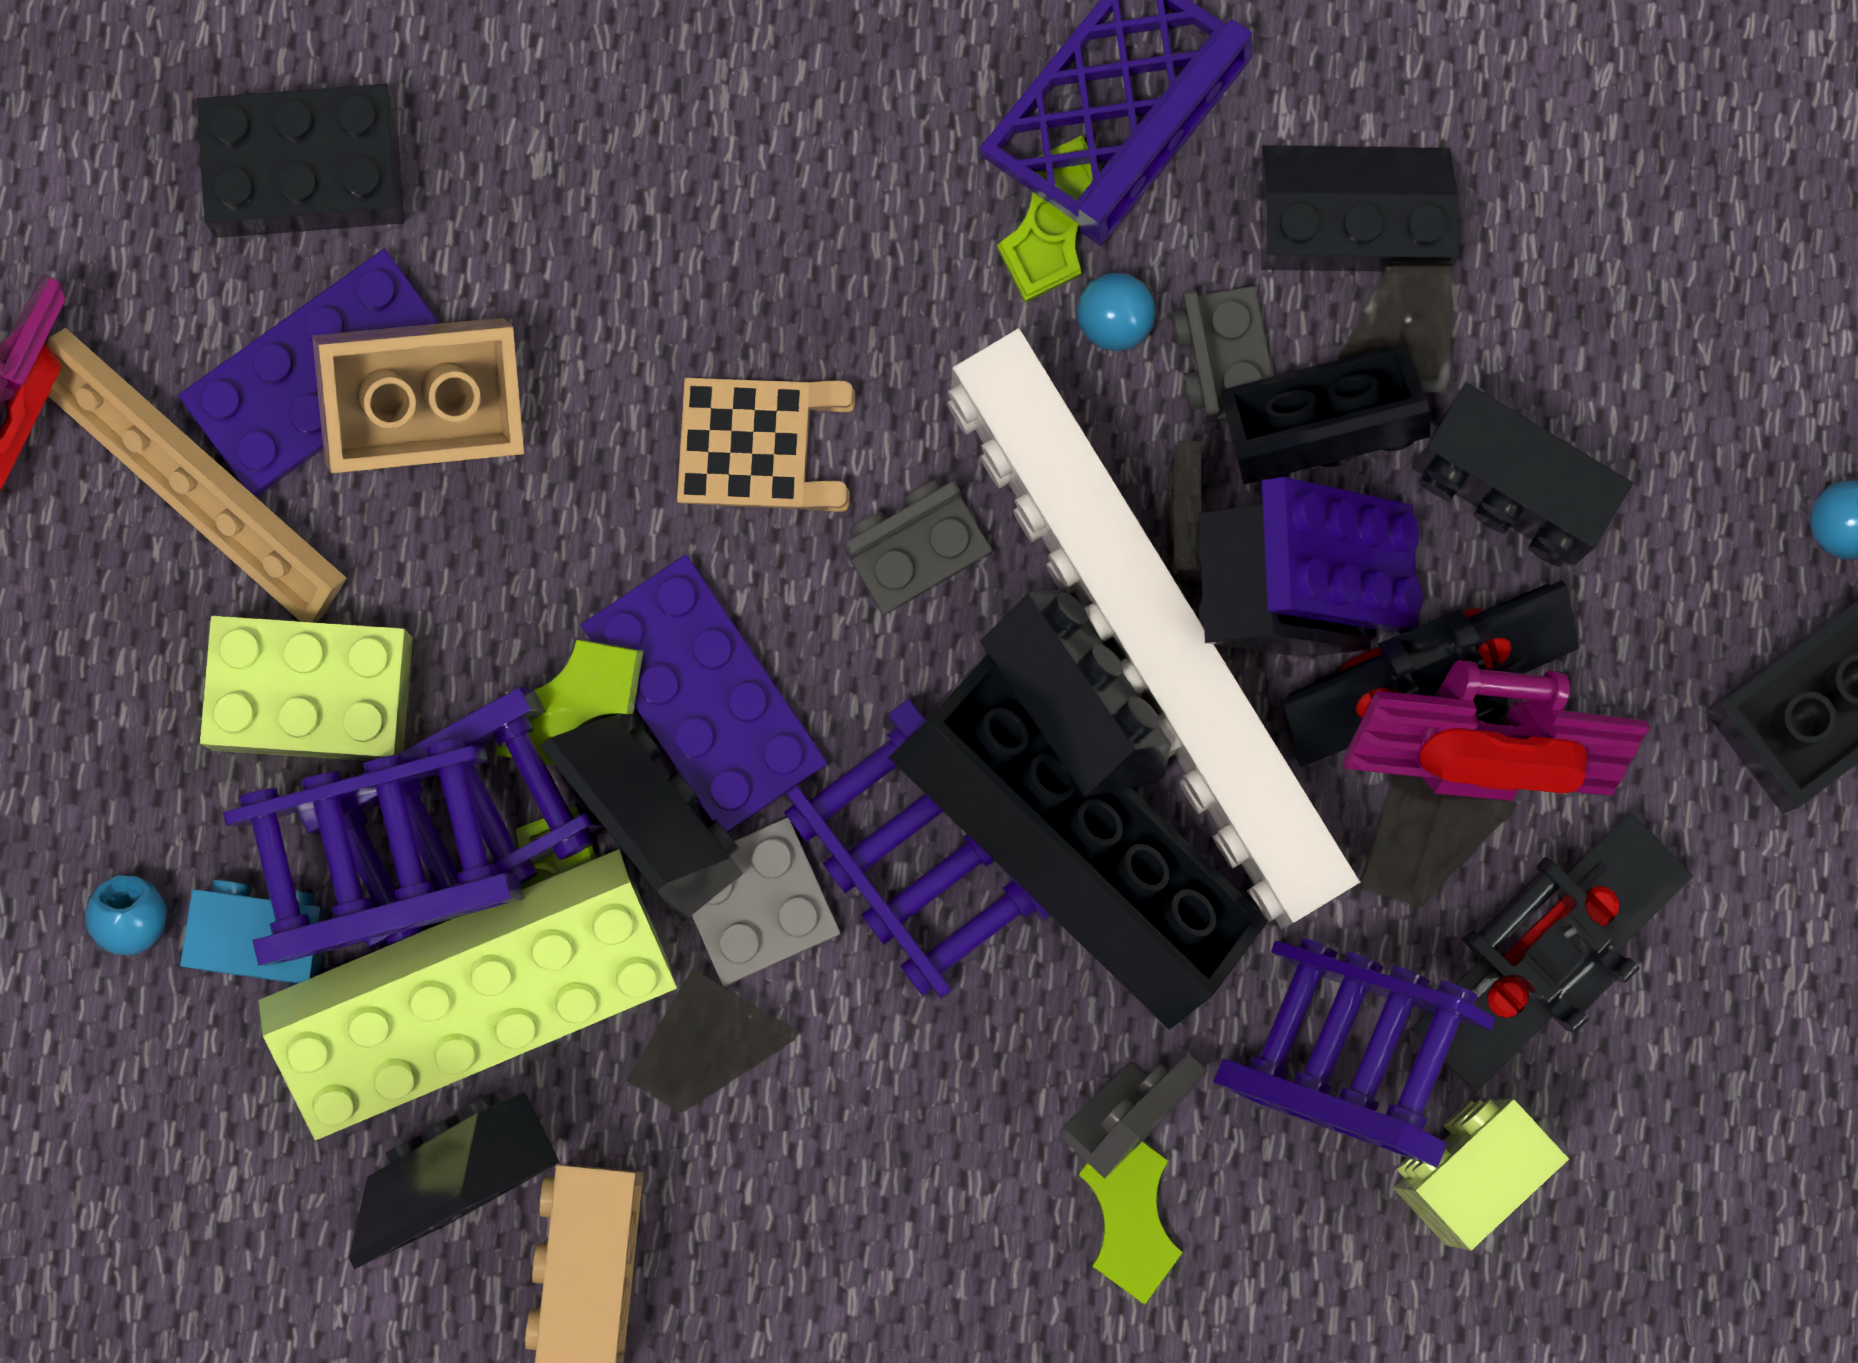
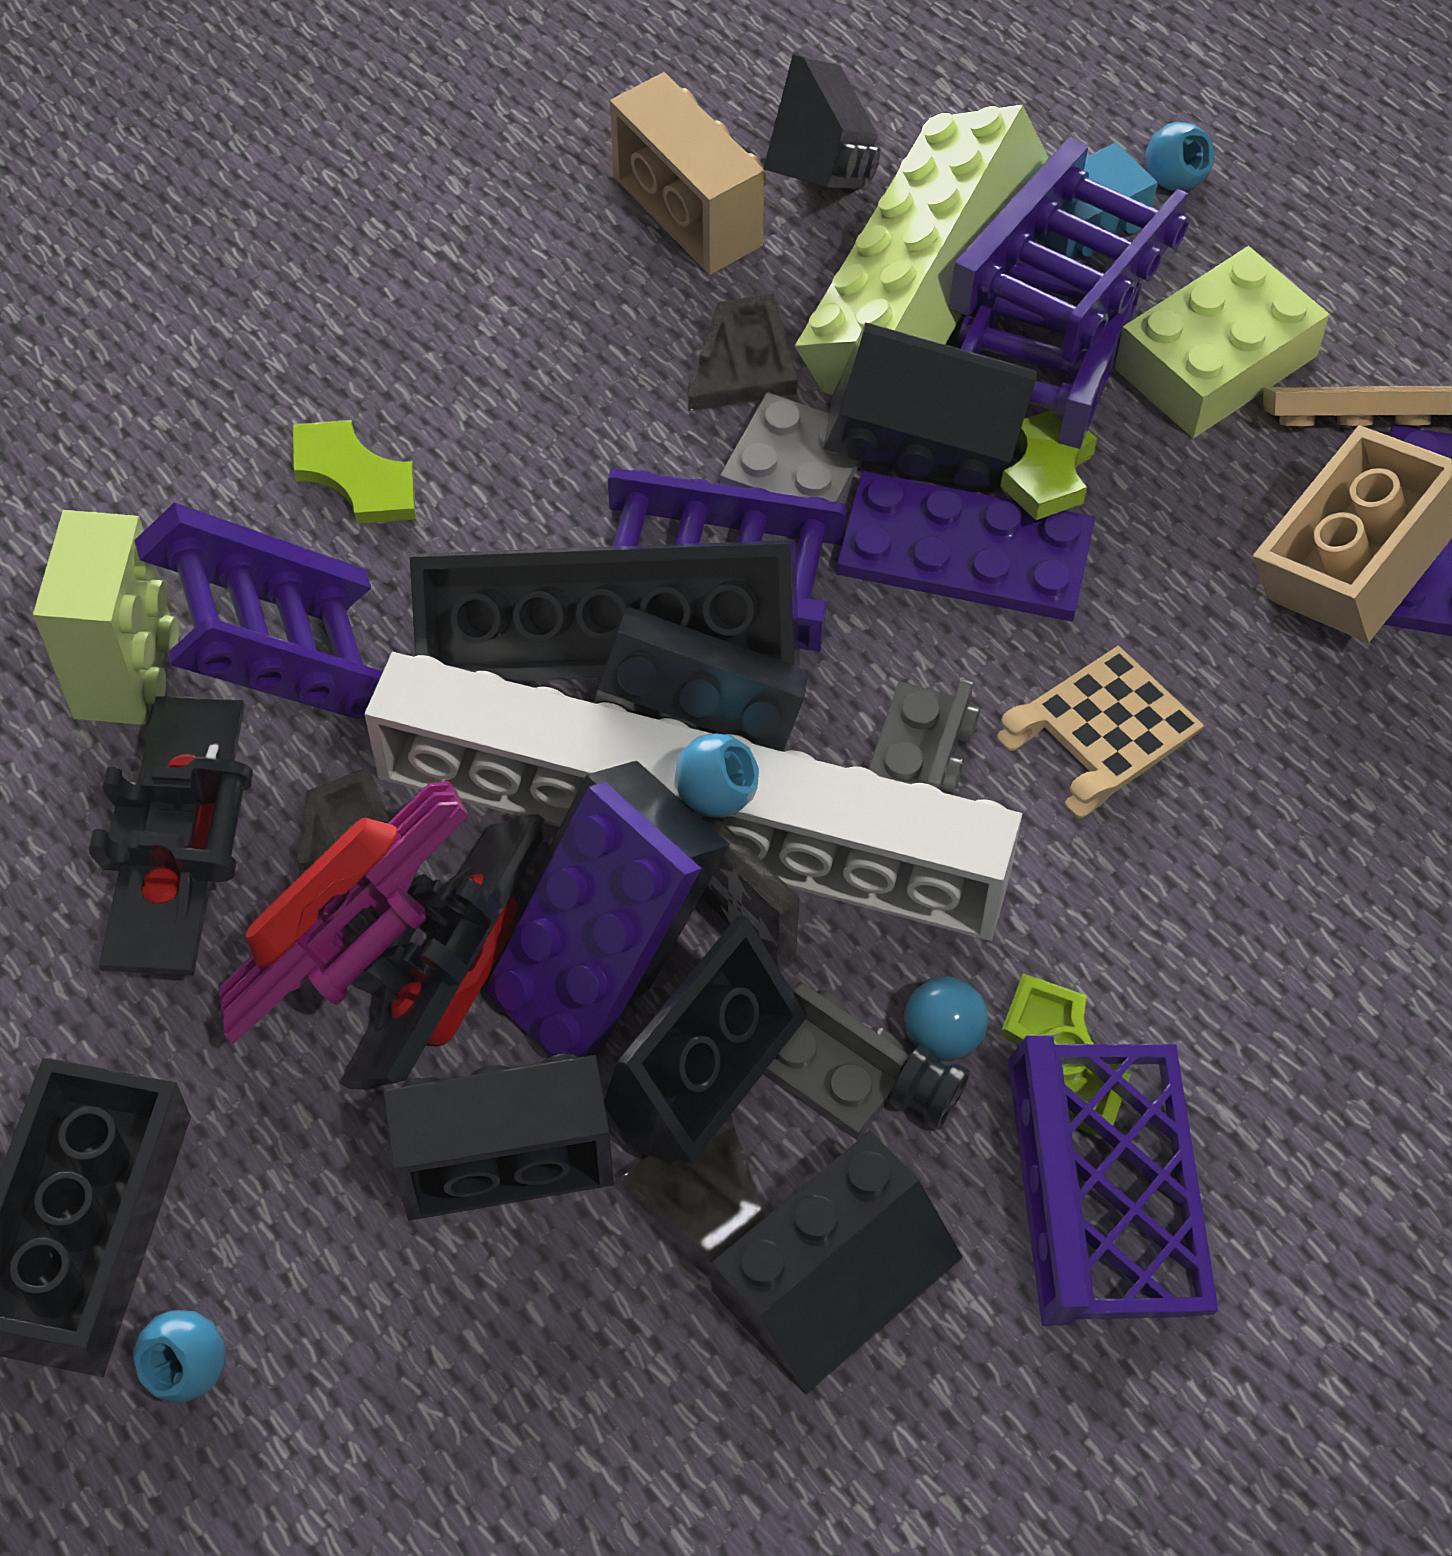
camera: 140 degrees right, 25 degrees down
(1128, 1112) = (410, 497): dark grey bracket -> none
(1163, 571) = (716, 775): none -> dark azure piece
(1176, 270) = (929, 1086): none -> black wheel

